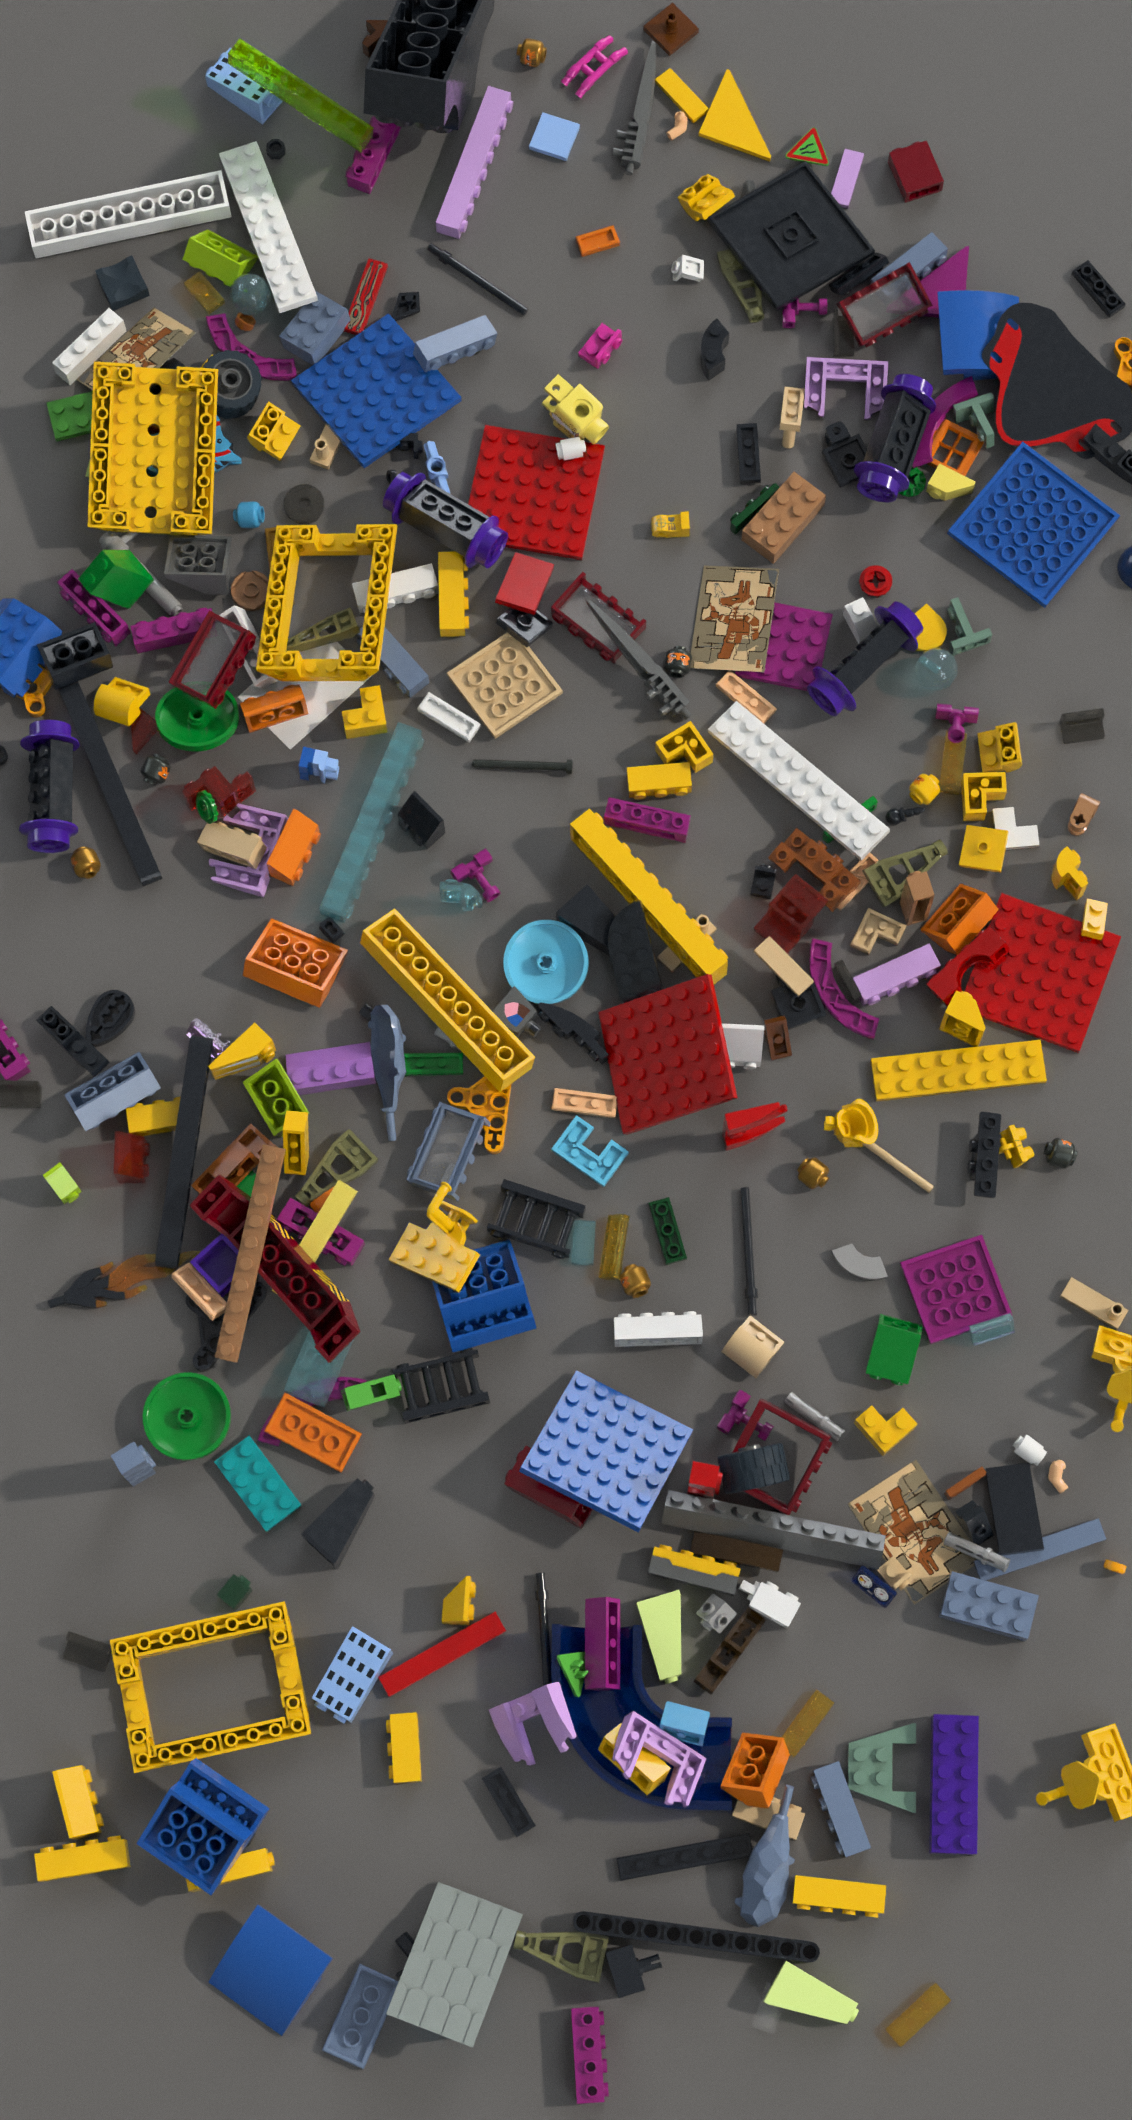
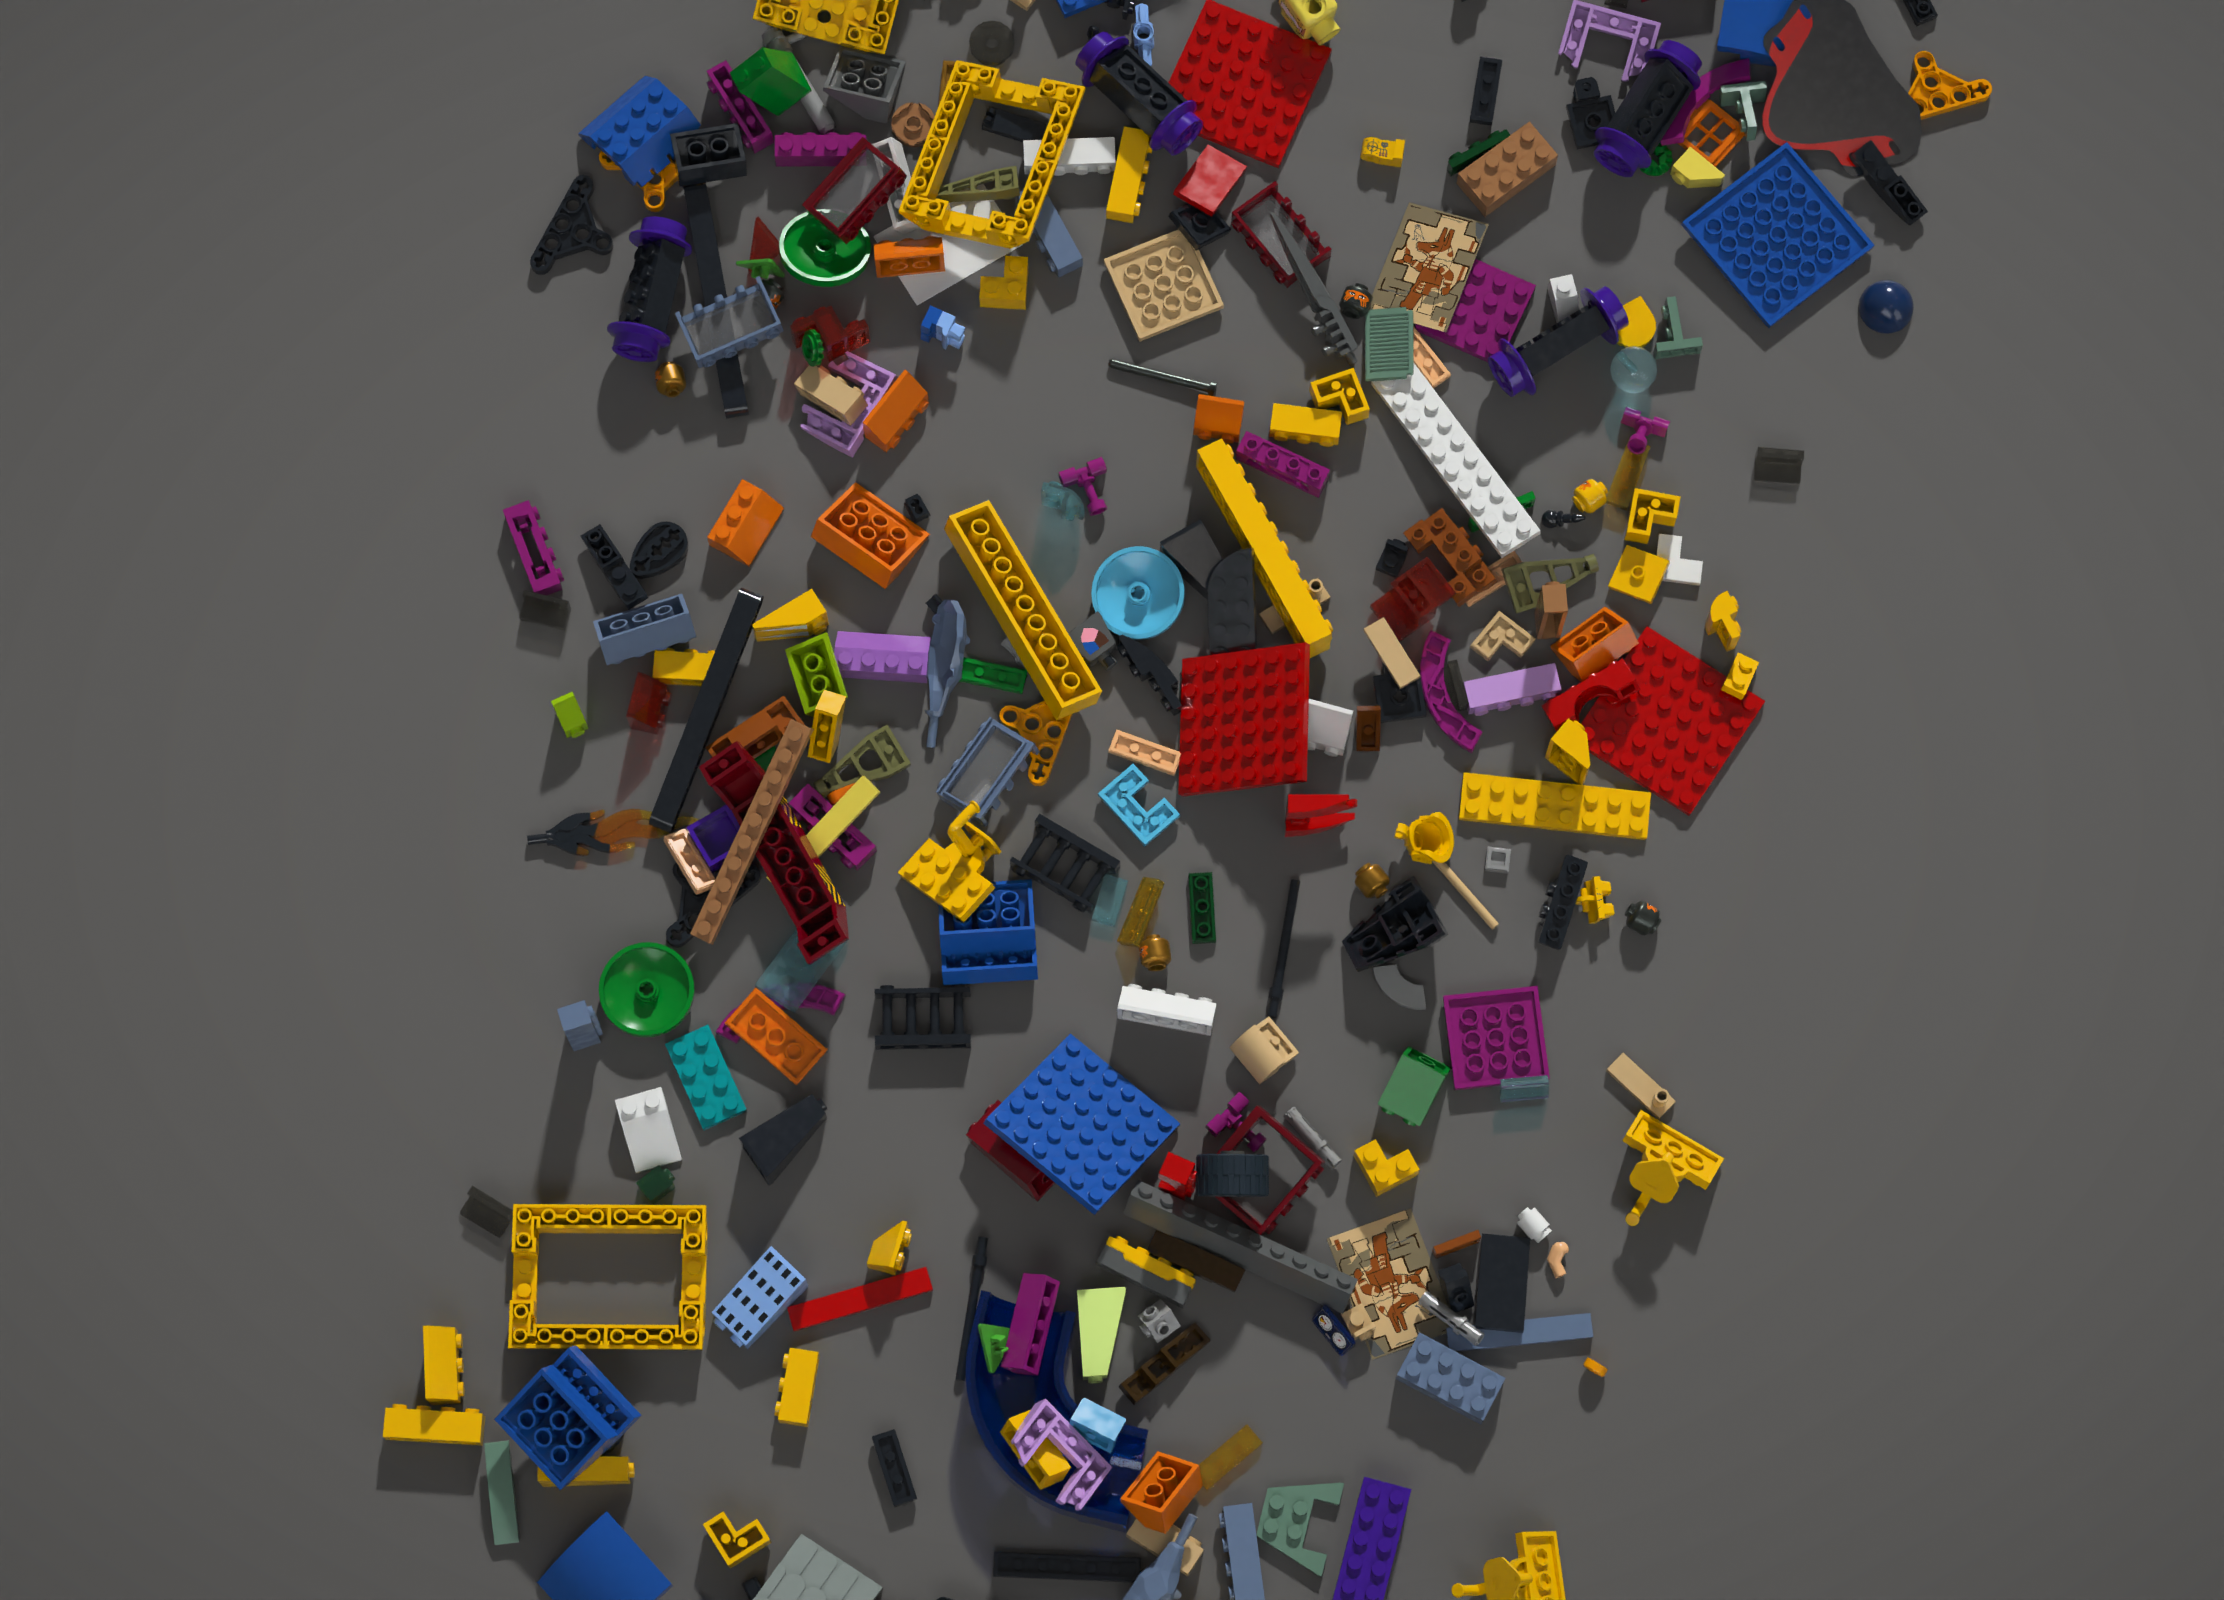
camera: 10 degrees right, 0 degrees up
(120, 701) = (746, 213): yellow brick -> none
(128, 802) = (730, 324): none -> window
(145, 746) = (761, 268): none -> bright green piece
(157, 1906) = (501, 1492): none -> sand green slope
(181, 976) = (745, 523): none -> orange slope
(200, 1029) = (752, 583): clear purple plate -> none
(217, 1543) = (648, 1129): none -> white slope
(249, 514) = (929, 42): dark azure head -> none
(339, 572) = (1012, 125): none -> black hinge
(371, 823) = (986, 402): clear light blue brick -> none
(371, 1392) = (847, 1007): bright green brick -> none
(380, 1907) = (736, 1545): none -> yellow brick
(421, 821) = (1039, 413): black slope -> none
(449, 717) = (1095, 307): white plate -> none
(546, 1701) = (954, 1368): lavender wedge -> none
(570, 448) = (1293, 44): white brick -> none
(581, 791) = (1218, 418): none -> orange slope
(716, 693) = (1389, 344): none -> sand green window
(770, 1602) = (1220, 1323): white hinge -> none
(791, 414) = (1542, 58): tan piece -> none
(845, 1211) = (1396, 928): none -> black wedge
(882, 575) = (1600, 254): red gear -> none
(919, 1129) = (1497, 860): none -> light grey tile
(1000, 749) = (1682, 470): yellow brick -> none
(1083, 812) = (1756, 558): medium nougat piece -> none

